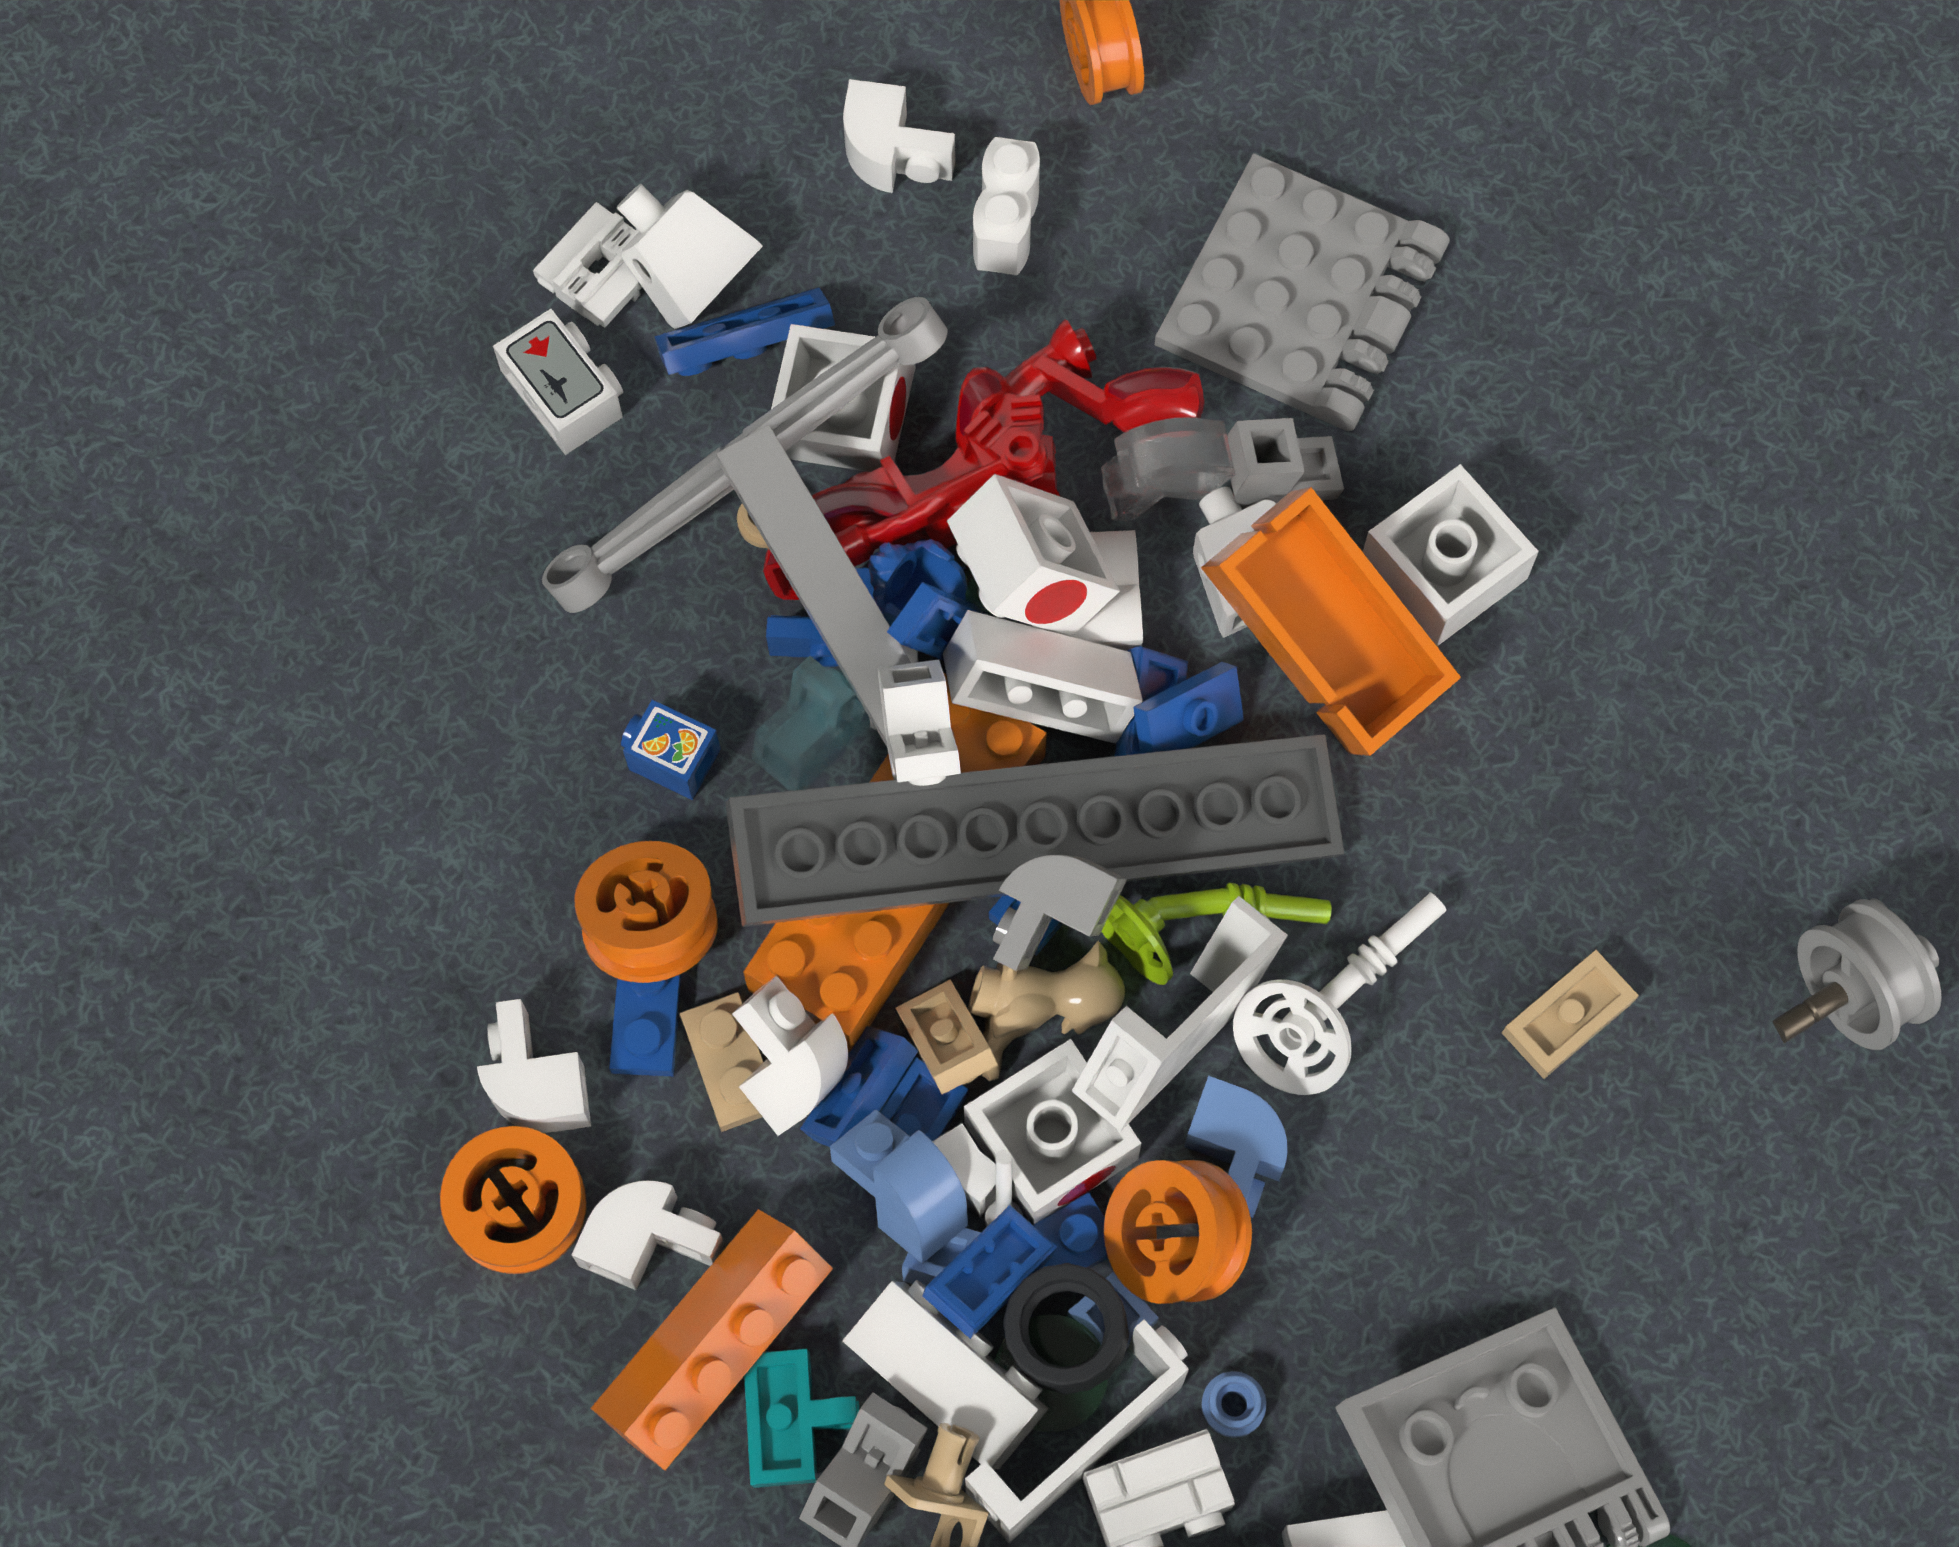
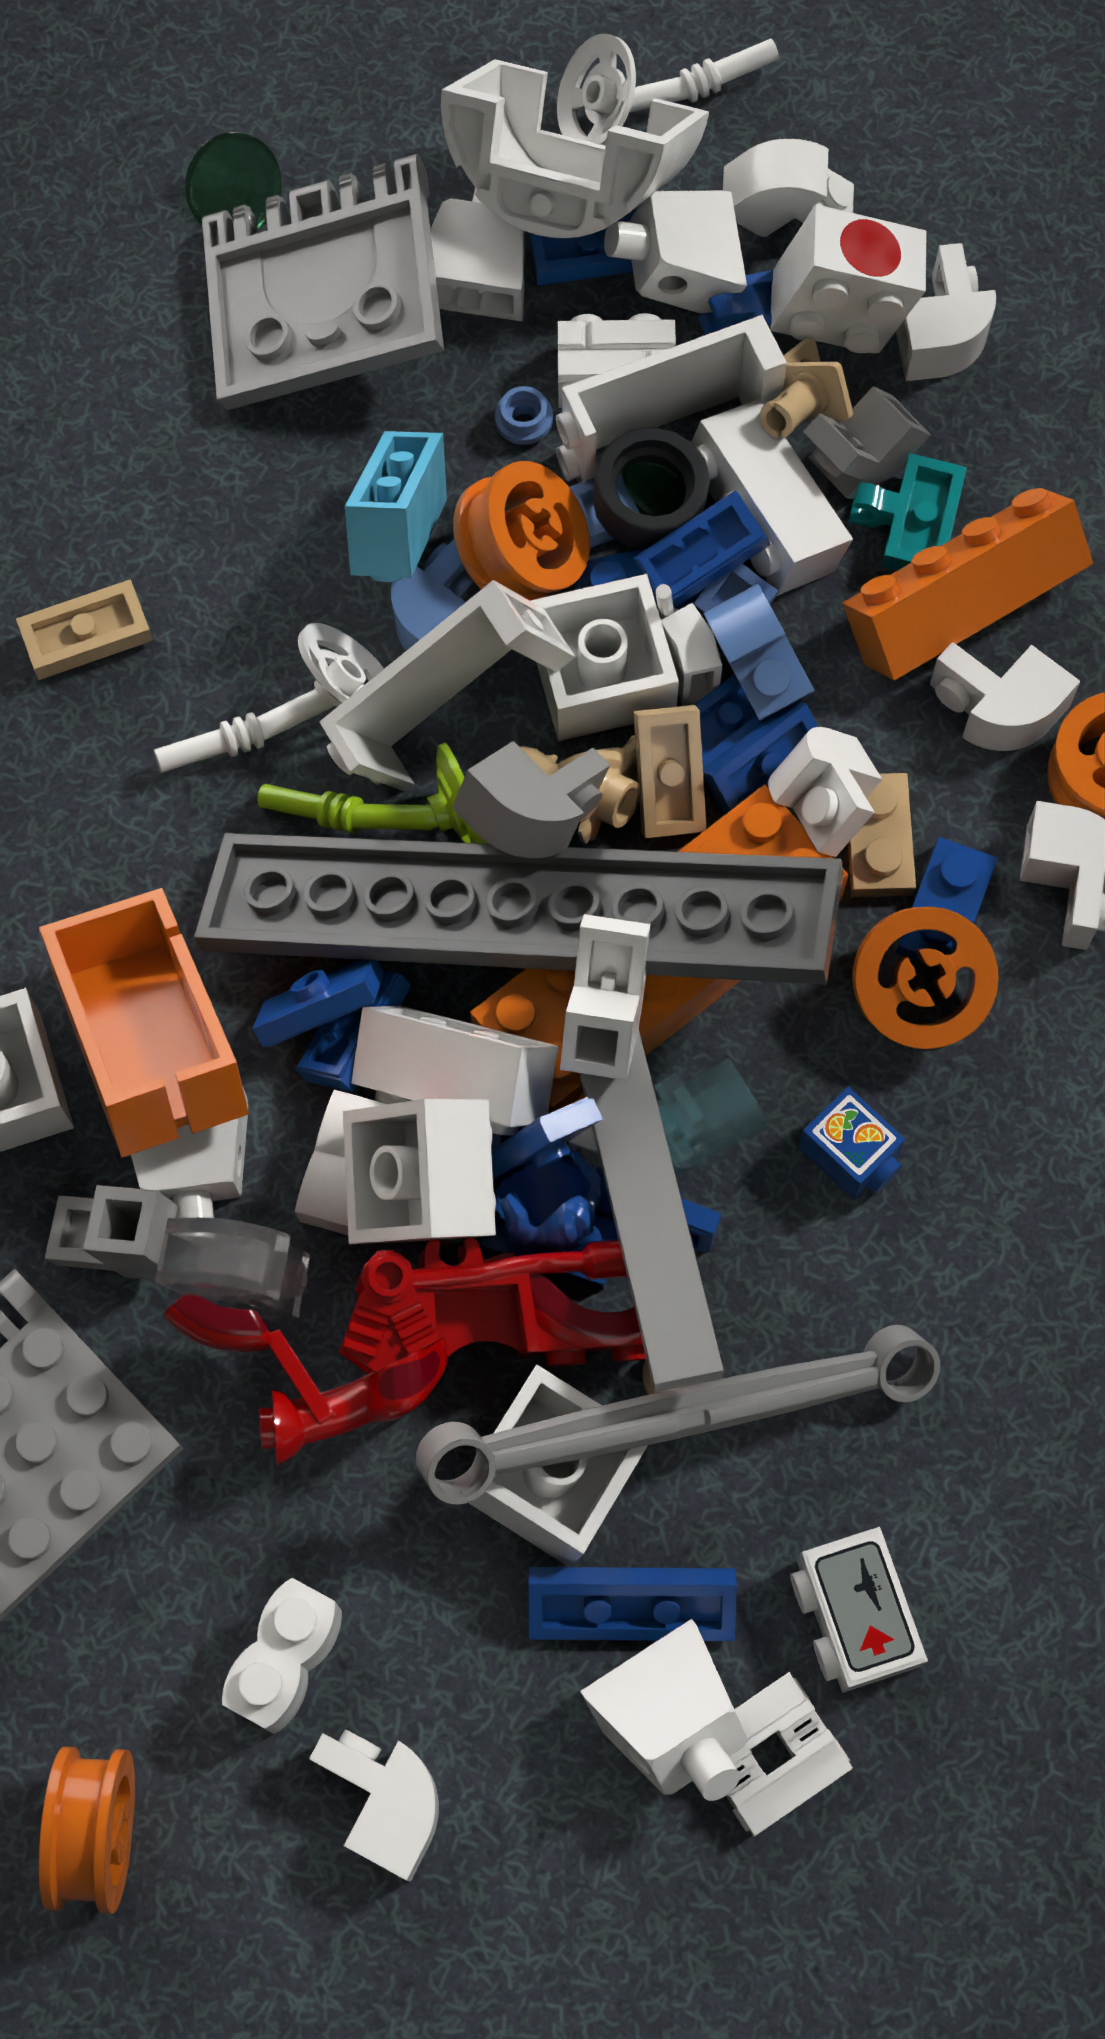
camera: 160 degrees left, 0 degrees up
(1311, 1208) = (396, 505): none -> medium azure brick

